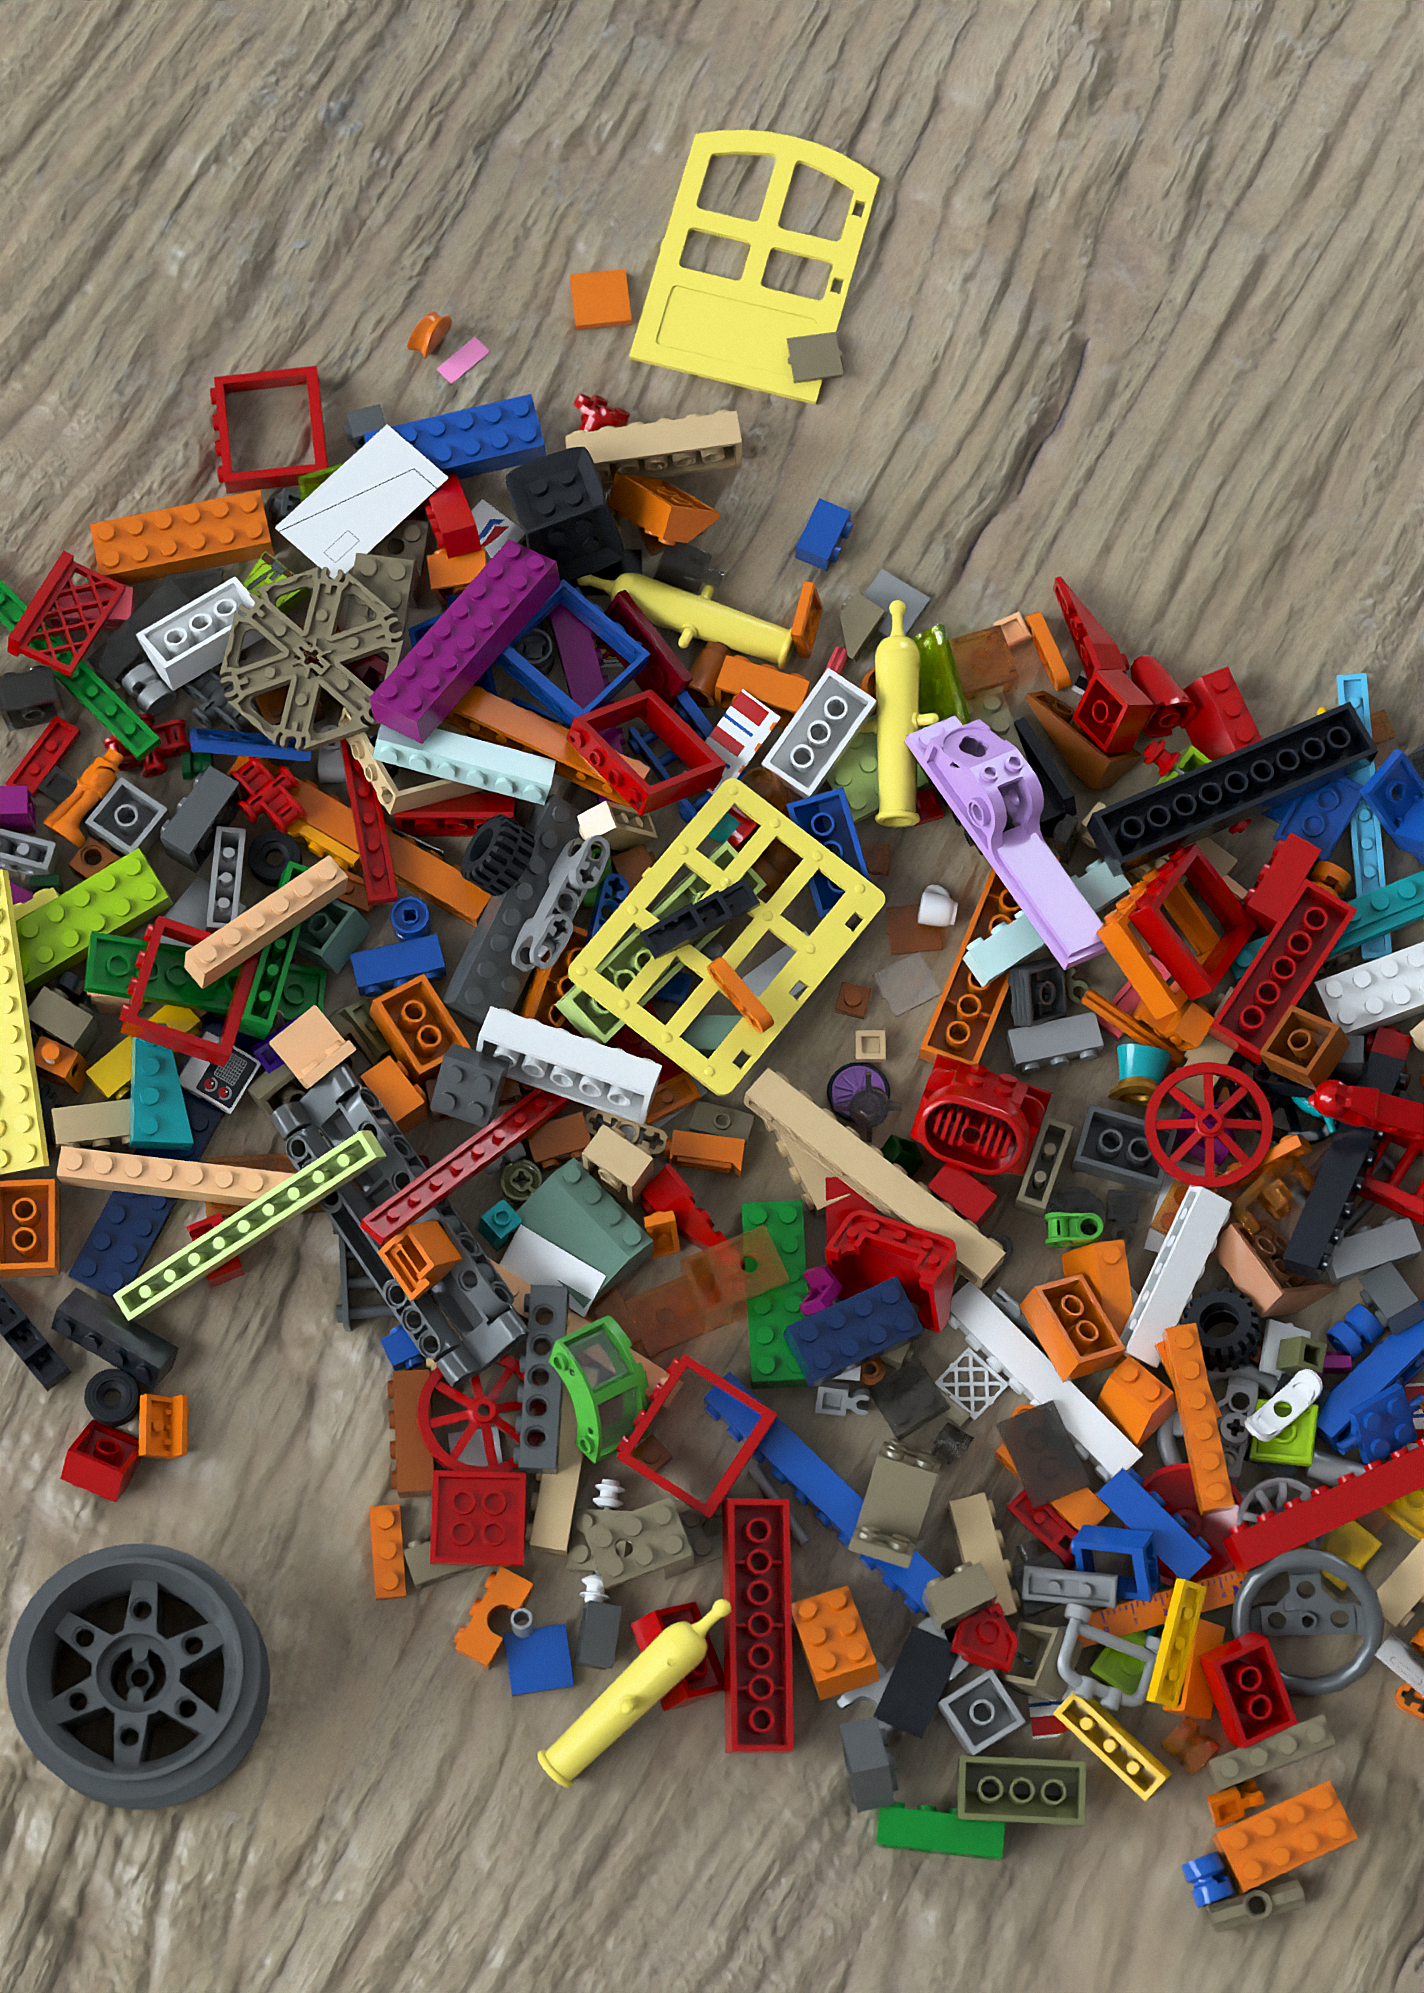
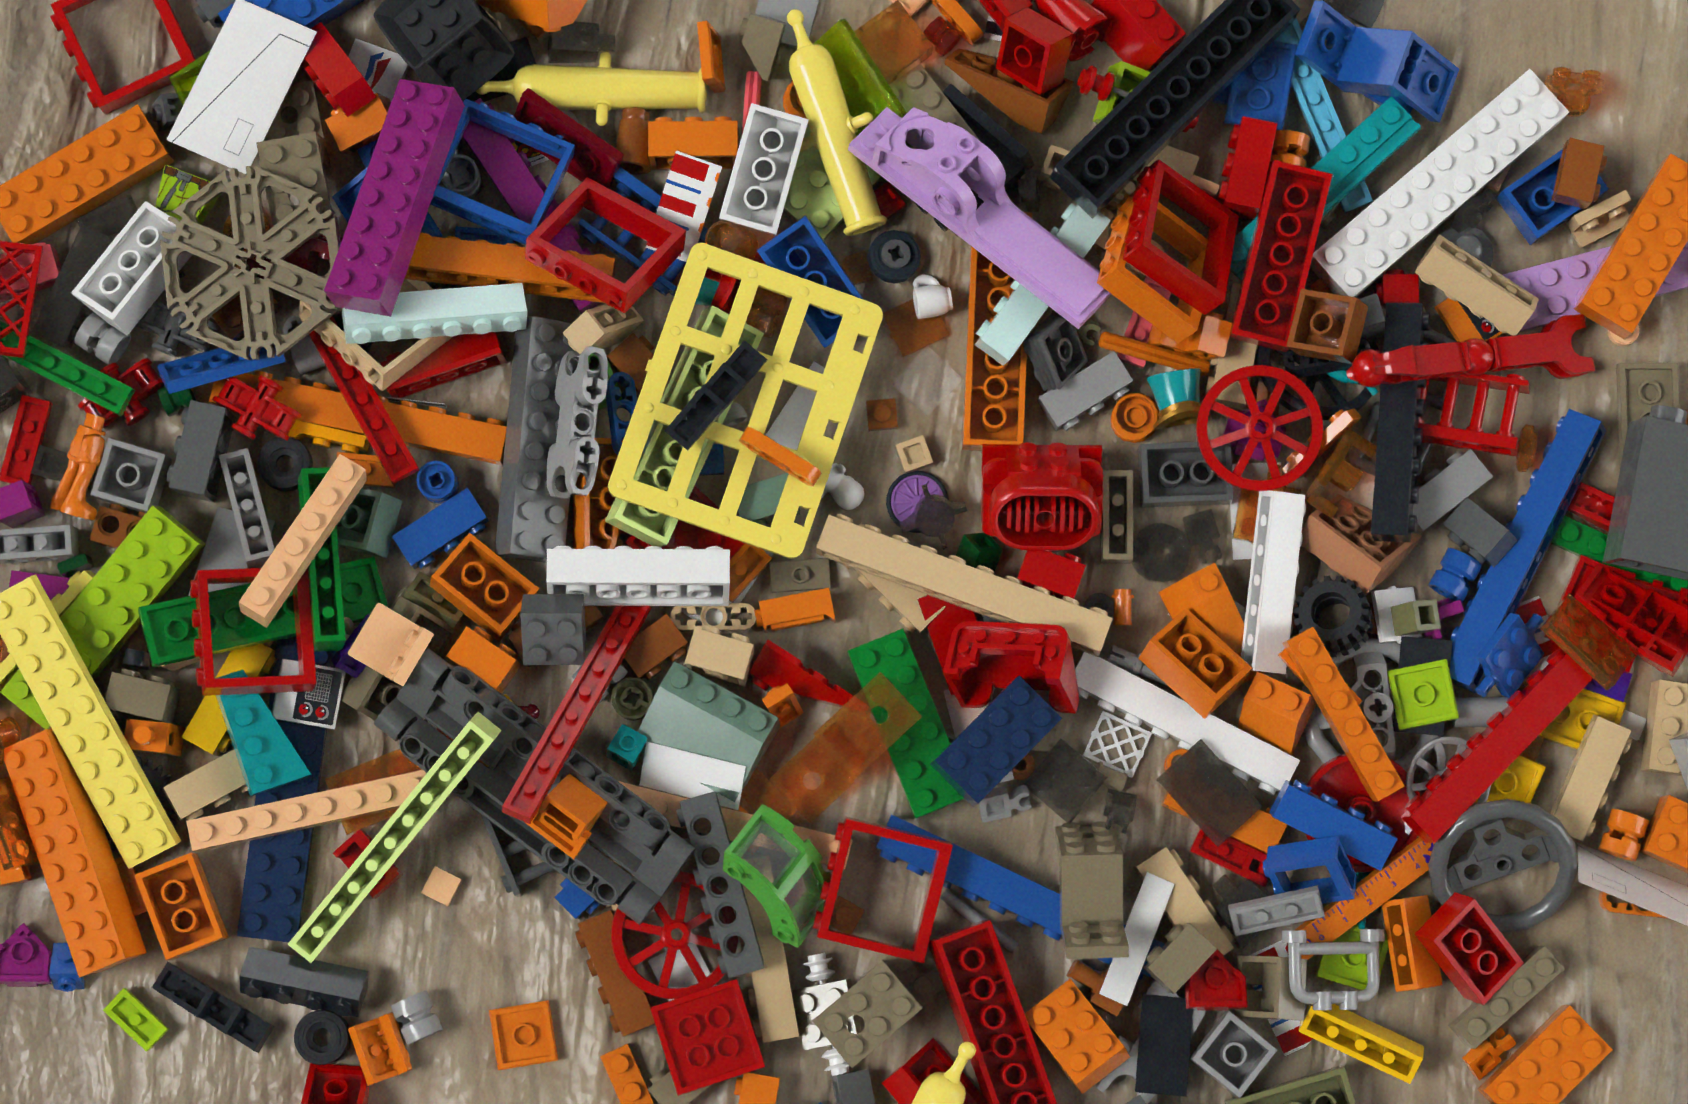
camera: 20 degrees left, 10 degrees up
(208, 1408) = (416, 1017): none -> light grey wheel
(277, 1296) = (441, 886): none -> light nougat tile
(303, 1462) = (523, 1035): none -> orange tile
(497, 855) = (499, 395): black tyre -> none
(791, 1054) = (843, 488): none -> white animal
(823, 1292) = (953, 711): magenta bracket -> none
(881, 1606) = (1094, 980): none -> dark orange brick
(909, 867) = (886, 264): none -> black wheel
(924, 1566) = (1140, 933): none -> white sticker
(1021, 1255) = (1122, 606): none -> orange pin
(1030, 673) = (941, 36): none -> clear red wheel
(1070, 1229) = (1162, 570): bright green piece -> none
(1092, 1082) = (1134, 417): none -> orange piece
(1176, 1643) = (1391, 929): yellow plate -> none
(1202, 1745) = (1441, 1020): clear orange wheel -> none
(1298, 1393) = (1426, 655): white piece -> none

